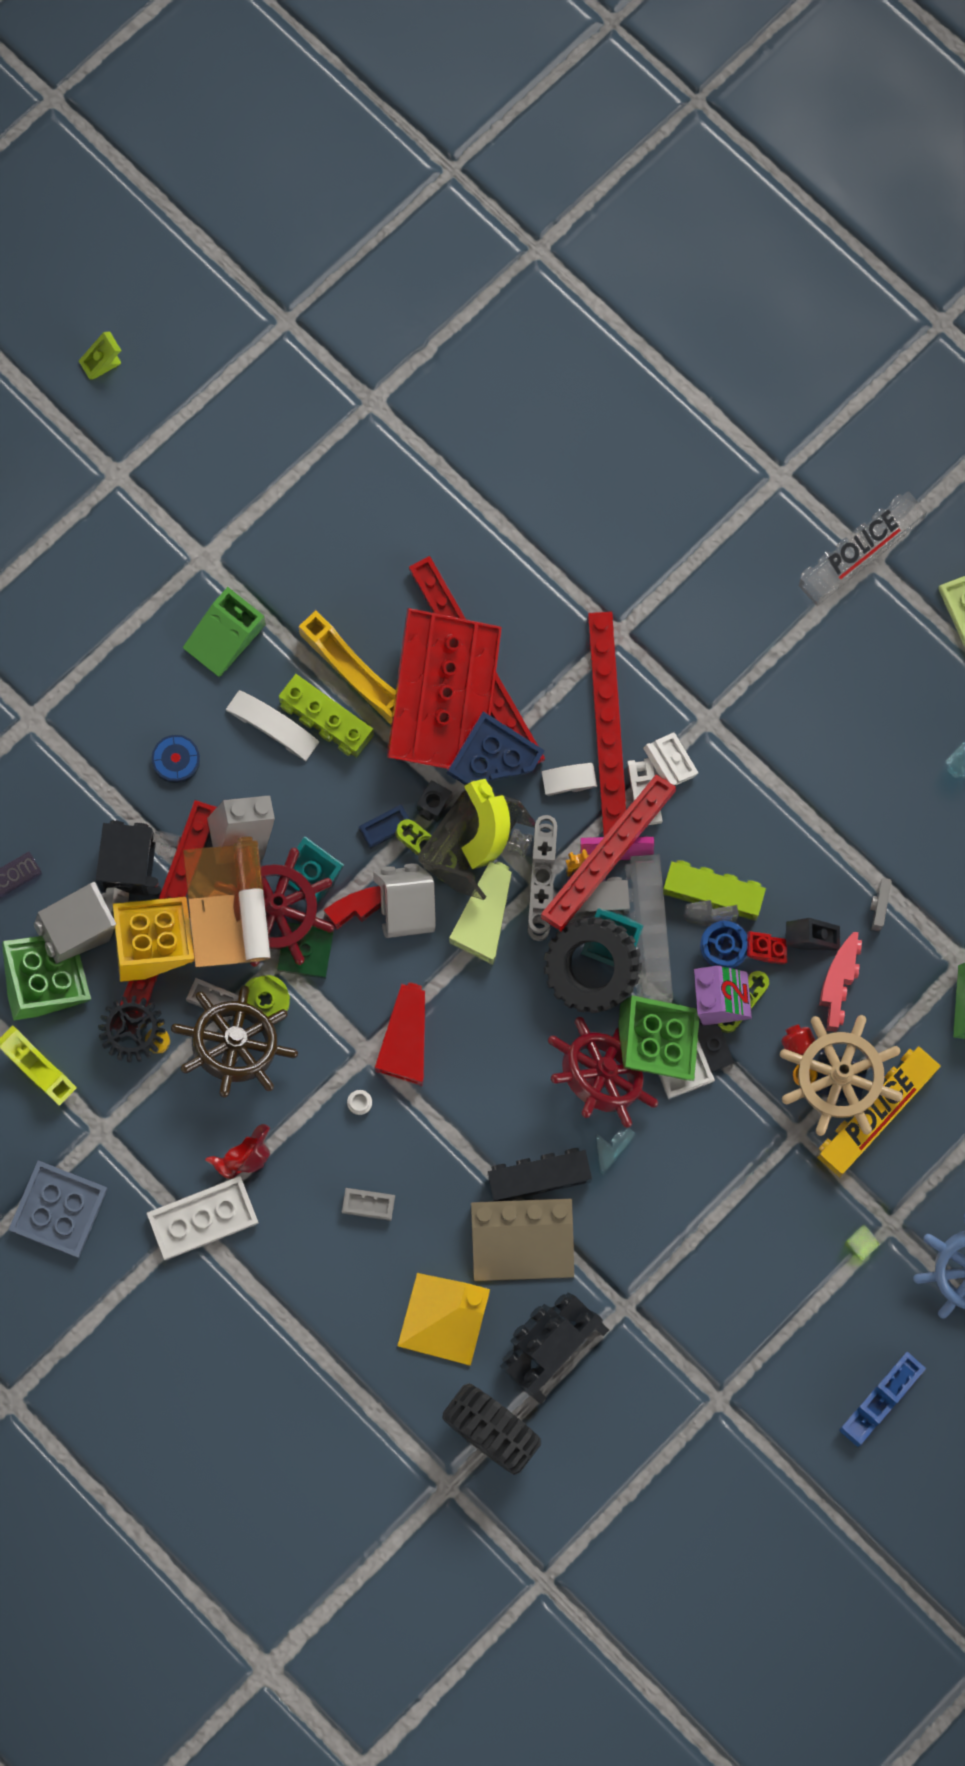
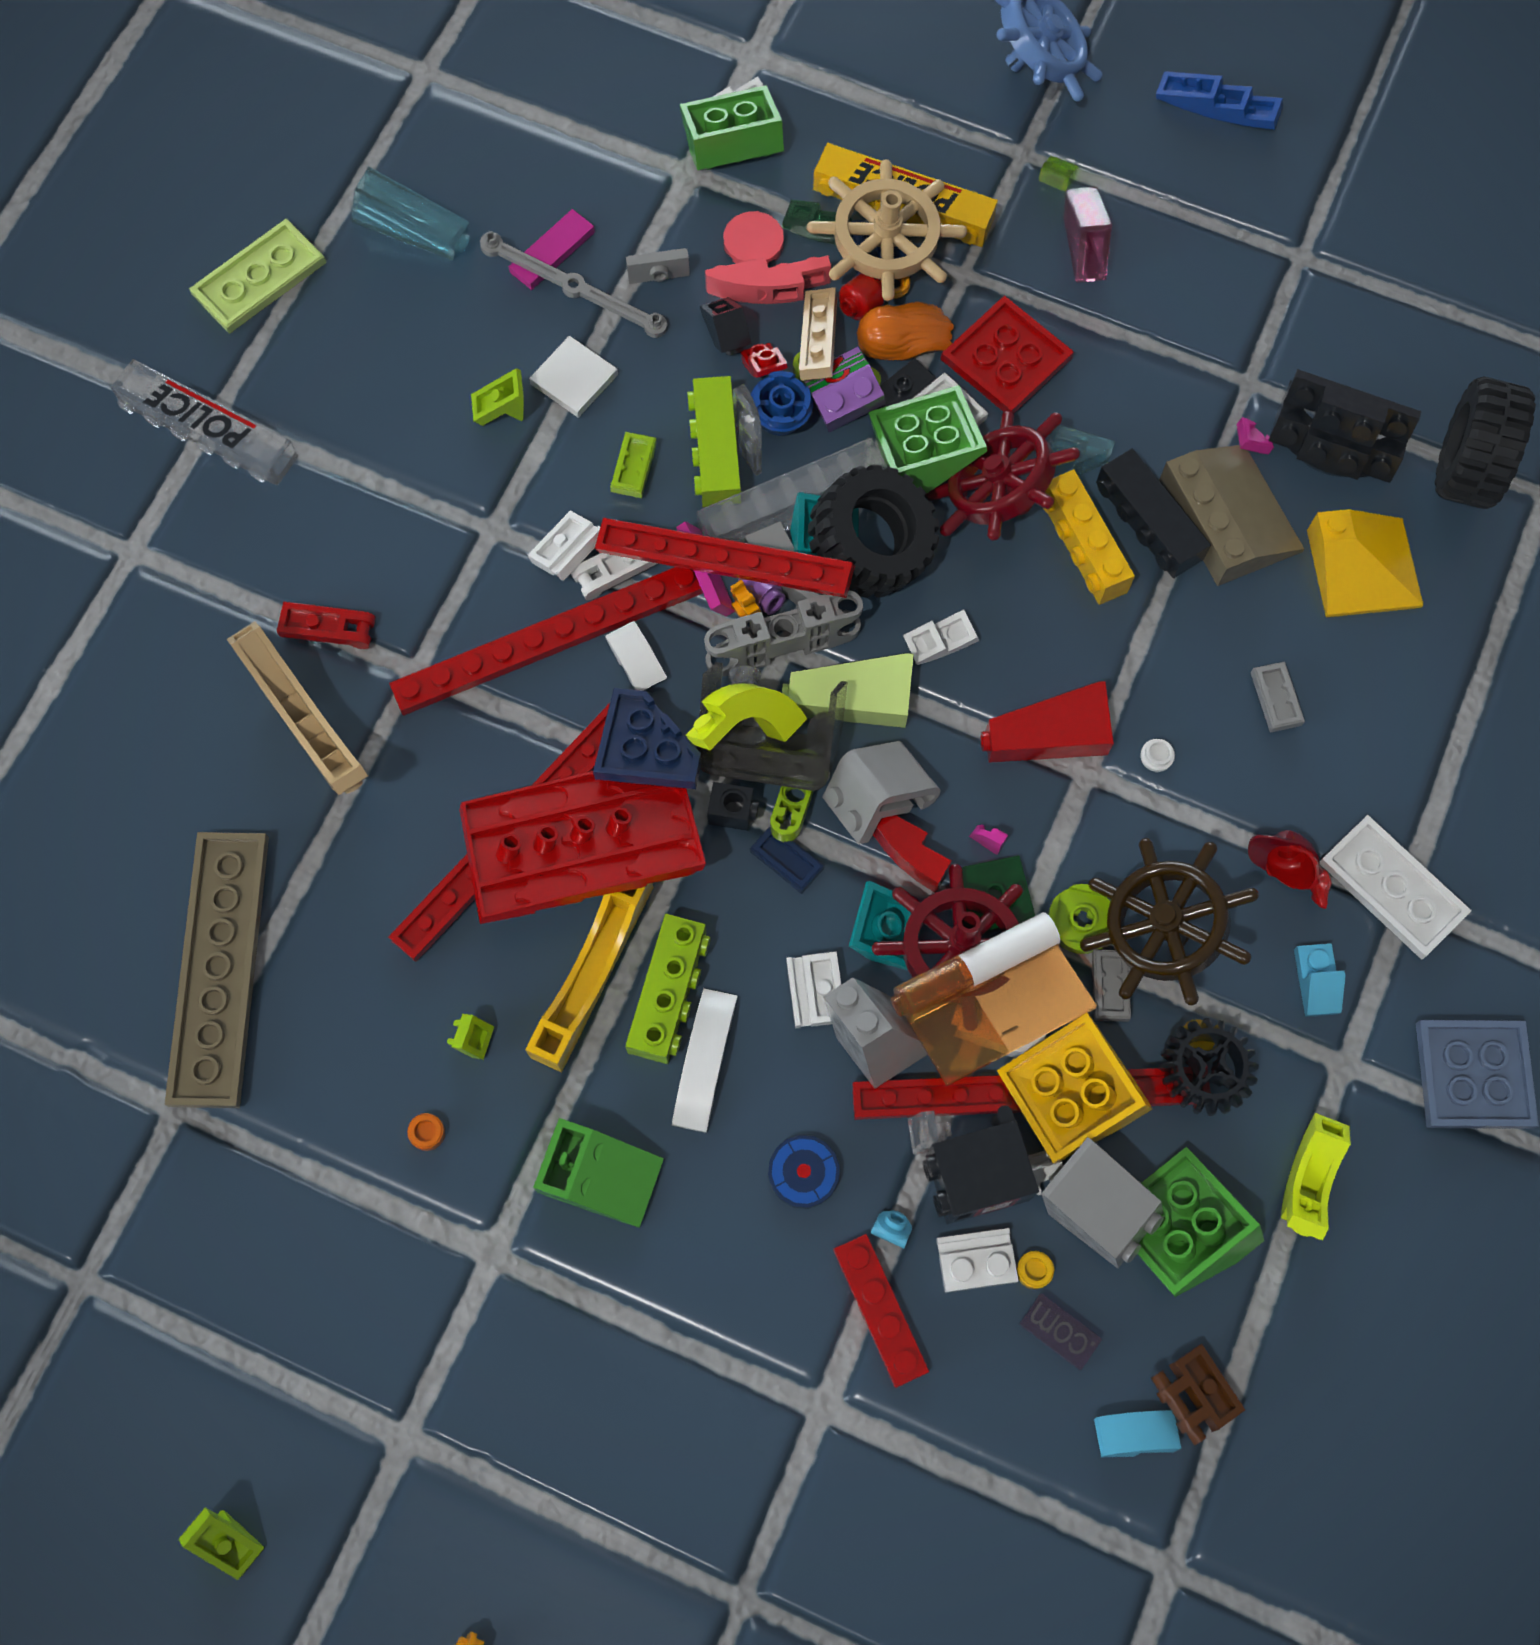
camera: 110 degrees left, 5 degrees down
(57, 875) = (1035, 1270): none -> yellow tile
(73, 772) = (880, 1311): none -> red plate
(77, 842) = (977, 1260): none -> white plate
(118, 798) = (892, 1227): none -> medium azure plate
(162, 1138) = (1319, 981): none -> medium azure slope
(291, 808) = (809, 981): none -> white plate
(295, 542) = (426, 1132): none -> orange tile
(343, 586) = (471, 1036): none -> lime tile
(345, 962) = (991, 840): none -> dark pink tile
(452, 448) = (217, 971): none -> dark tan plate
(504, 991) = (941, 639): none -> white slope
(538, 1122) = (1088, 539): none -> yellow brick
(576, 1284) = (1251, 438): none -> dark pink tile
(630, 539) = (297, 709): none -> tan arch
(672, 583) = (325, 624): none -> red plate
(711, 1131) = (1007, 355): none -> red plate
(720, 829) = (633, 465): none -> lime plate
(759, 1066) = (904, 331): none -> orange hair
(773, 994) = (818, 334): none -> tan plate
(794, 1234) = (1087, 233): none -> clear pink slope
(805, 752) = (498, 398): none -> lime slope
(810, 814) = (573, 376): none -> white tile
(834, 886) = (653, 324): none -> light grey piece
(882, 986) = (753, 237): none -> coral tile
(884, 1033) = (801, 213): none -> clear green slope
(927, 835) = (555, 246): none -> dark pink tile

